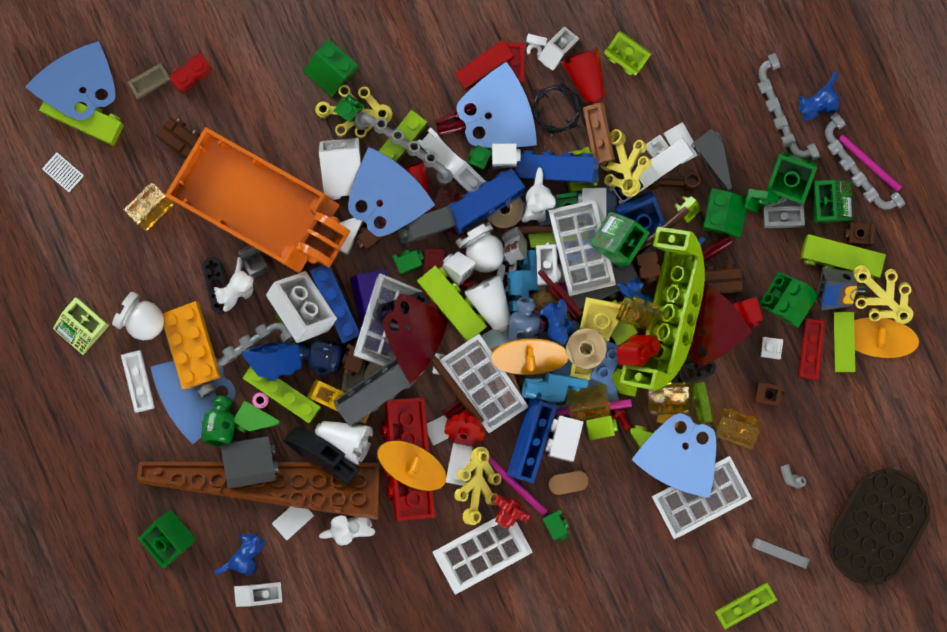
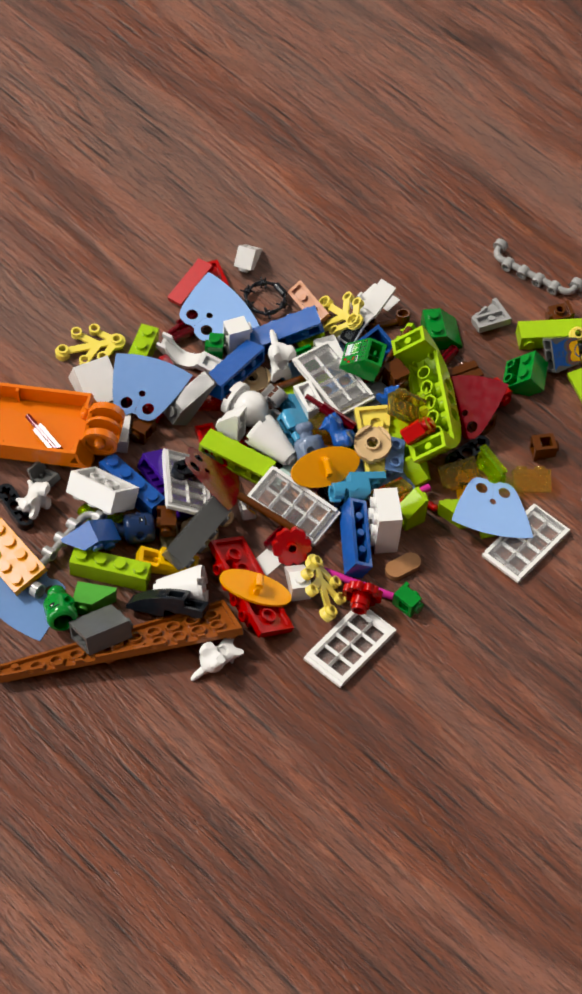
camera: 25 degrees left, 30 degrees down
(167, 539) = (43, 723): green slope -> none
(243, 559) = (126, 715): blue animal -> none
(256, 397) = (92, 576): bright pink pin -> none
(258, 594) = (151, 742): white slope -> none
(265, 222) = (43, 433): none -> axle
(292, 521) = (160, 674): white sticker -> none
(330, 68) = (58, 318): green slope -> none
(348, 108) = (87, 335): green brick -> none
(363, 121) = (155, 344): light grey bar -> none
(408, 261) = (184, 438): green brick -> none
(535, 42) = (227, 257): white tile -> none
(586, 74) = (278, 263): red cone -> none
(627, 53) = (307, 244): lime bracket -> none
(712, 153) = (412, 294): dark grey slope -> none
(759, 197) = (464, 310): green bracket -> none
(771, 348) = (528, 415): white tile -> none
(774, 105) = (455, 259): light grey bar -> none
(792, 177) = (484, 287): green slope -> none
(811, 349) = (562, 407): red tile -> none
(824, 100) = (480, 235): blue animal -> none
(832, 201) = (523, 297): green slope -> none
(870, 163) = (557, 273): dark pink bar -> none

